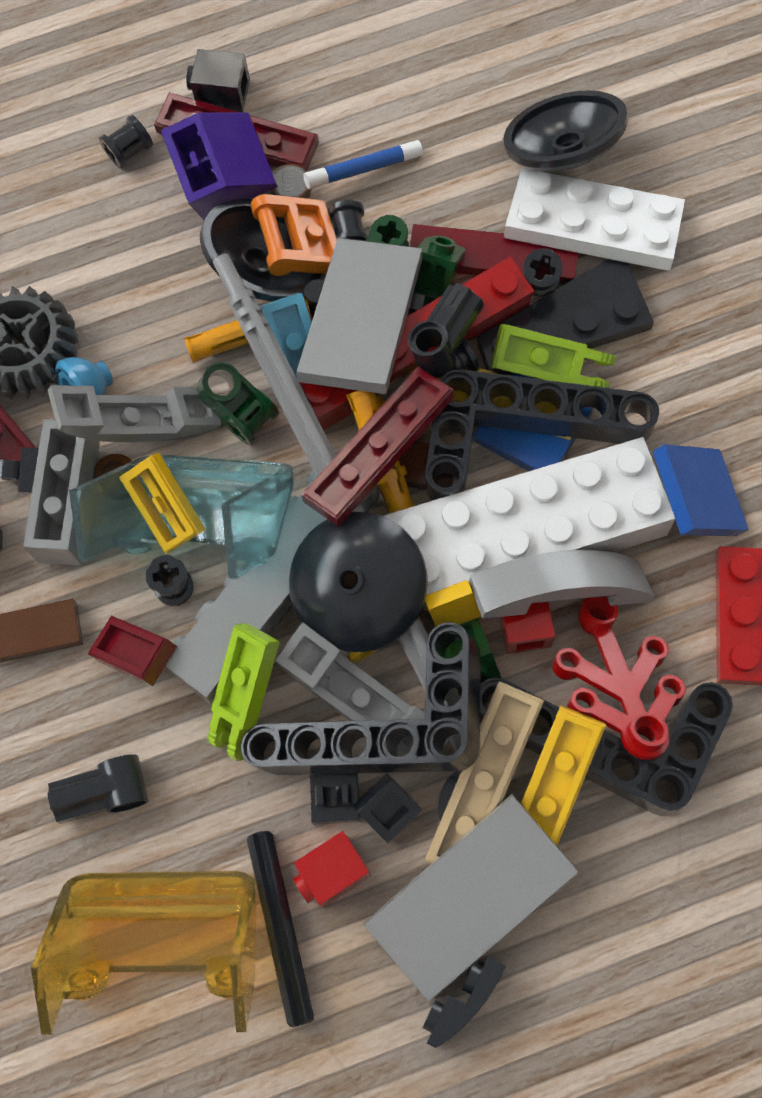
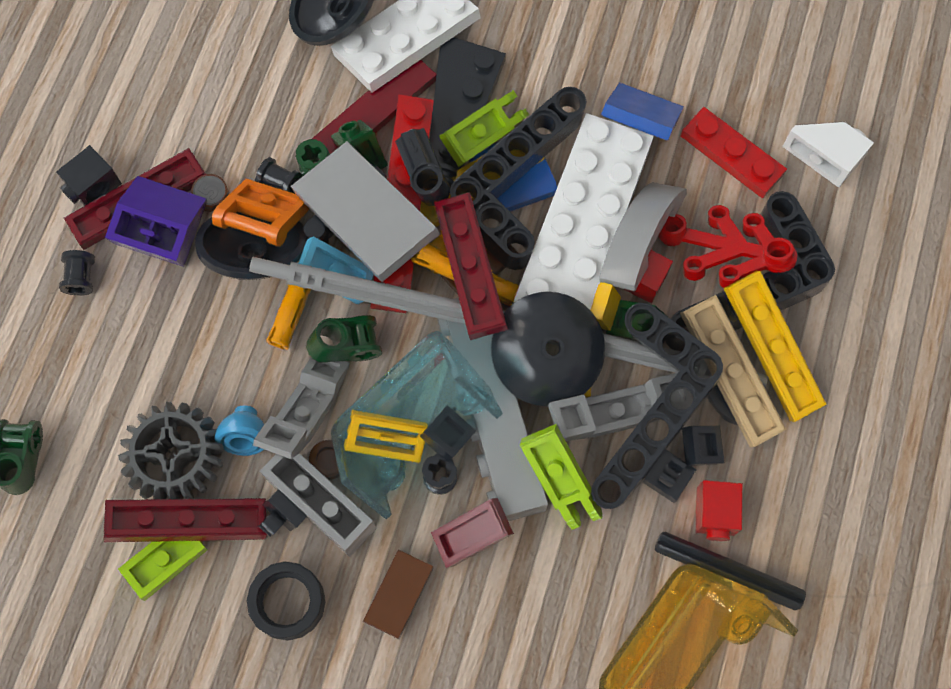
camera: 60 degrees left, 0 degrees up
(110, 788) = (555, 616): black piece -> none
(203, 554) = (447, 433): none -> black tile
(363, 164) = (238, 137): blue bar -> none
(453, 1015) = (864, 503): black slope -> none
(470, 897) = (799, 435): light grey tile -> none
(533, 263) = (423, 77): black bush -> none

